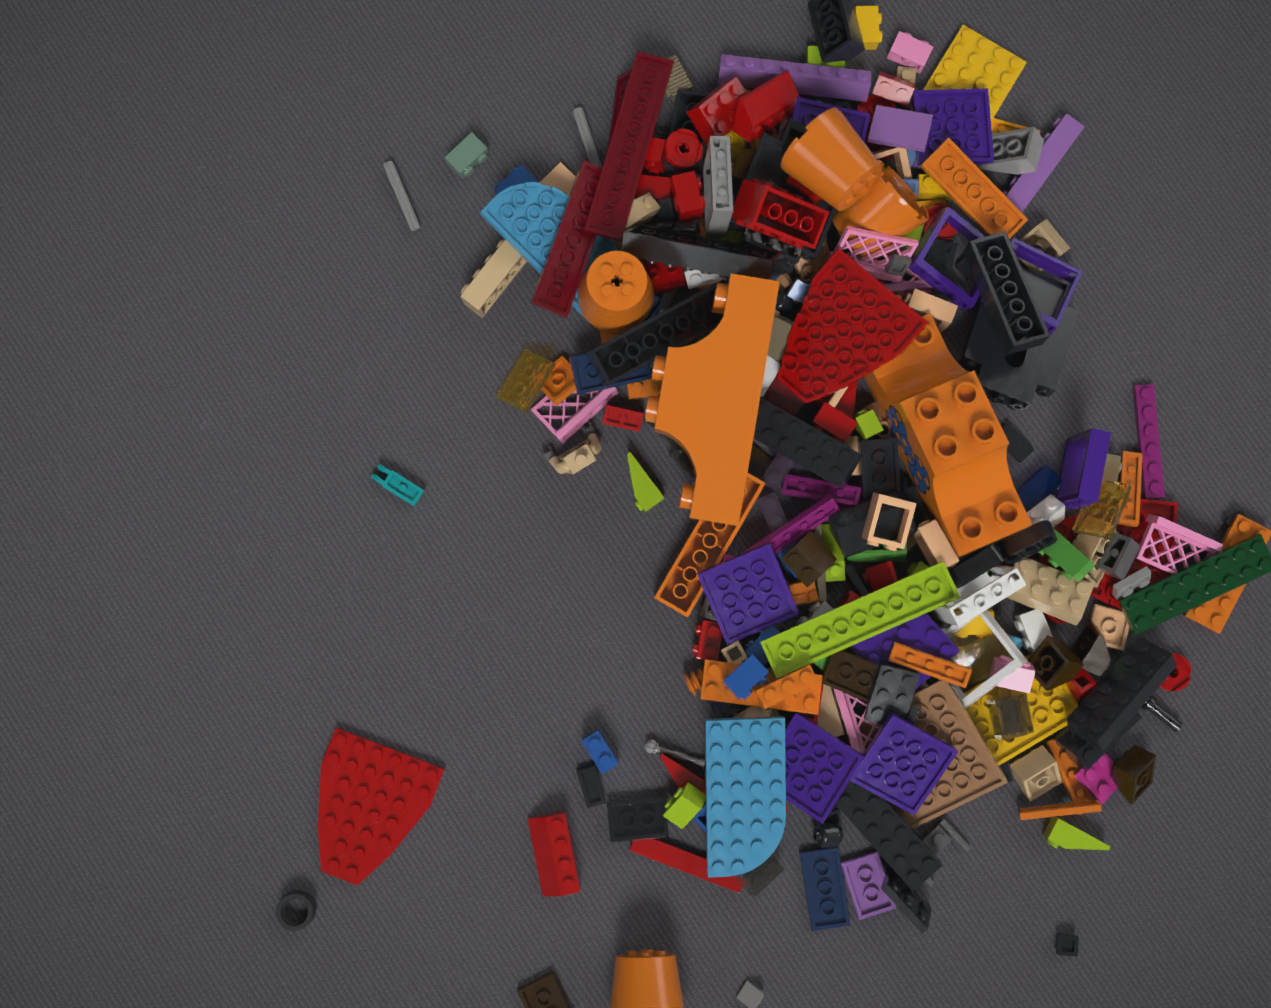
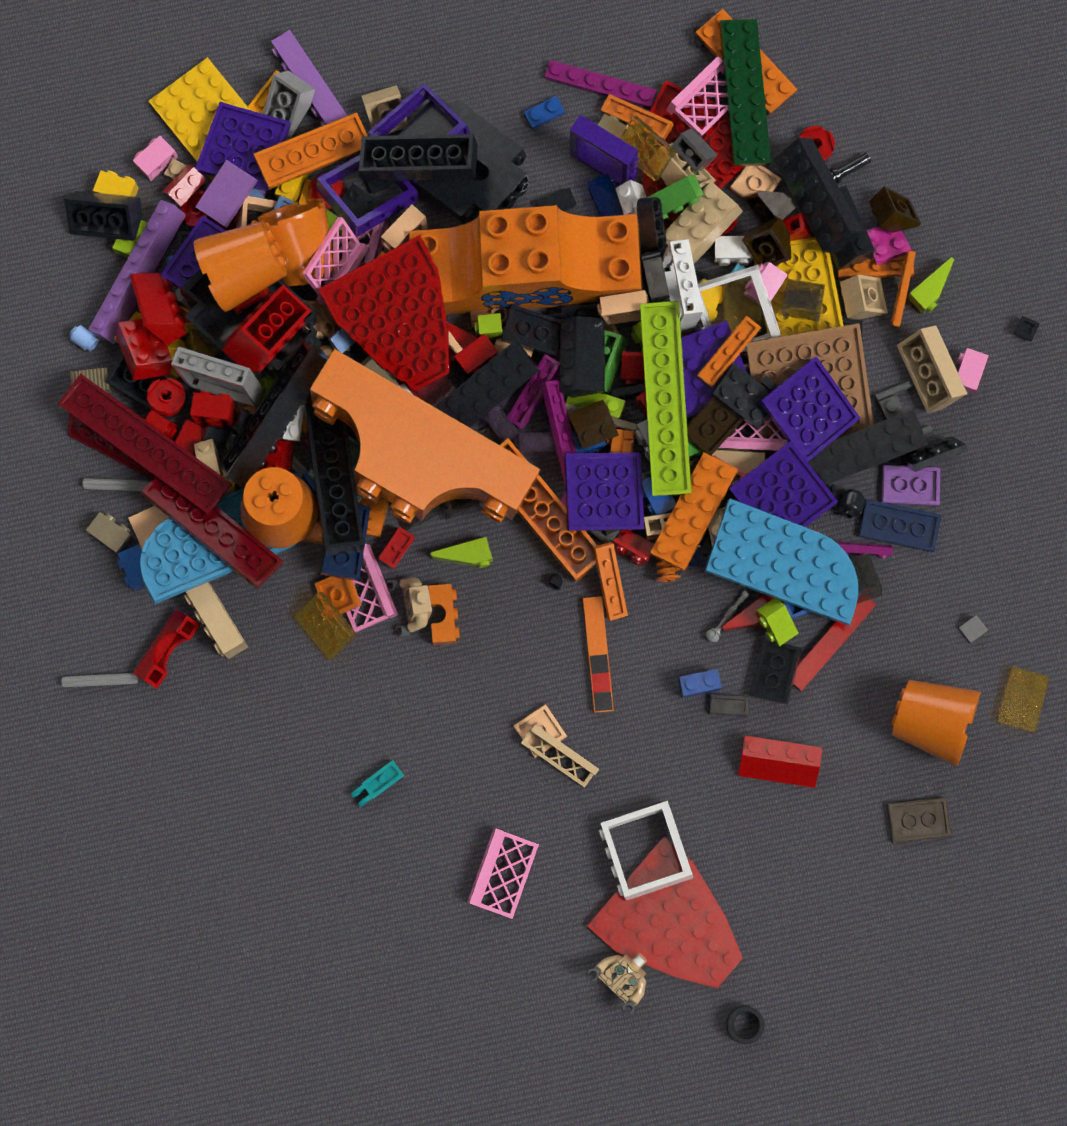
camera: 60 degrees left, 5 degrees down
(298, 780) = (623, 977): none -> tan torso
(356, 614) = (486, 868): none -> bright pink fence
(429, 238) = (154, 663): none -> red arch
(443, 783) = (612, 854): none -> white window
(467, 156) = (87, 603): sand green brick -> none
(489, 648) = (563, 749): none -> tan fence
(501, 616) = (546, 721): none -> light nougat tile
(539, 150) = (110, 533): none -> dark tan brick
(593, 481) = (445, 631): none -> orange arch
(593, 644) = (598, 654): none -> tile
(647, 578) = (554, 581): none -> black hinge
(665, 631) = (610, 581): none -> orange plate
(712, 55) = (83, 338): none -> light blue brick
(745, 677) = (679, 520): blue brick -> none
(786, 687) = (702, 486): orange brick -> none
(789, 864) = (880, 550): none -> magenta plate
(872, 517) = (578, 353): light nougat window -> none
(898, 264) = (352, 242): dark grey tile -> none
(990, 867) = (931, 369): none -> tan brick
(1003, 903) = (971, 369): none -> bright pink brick
(1098, 398) = (544, 113): none -> blue plate
(1128, 585) = (722, 147): light grey plate -> none

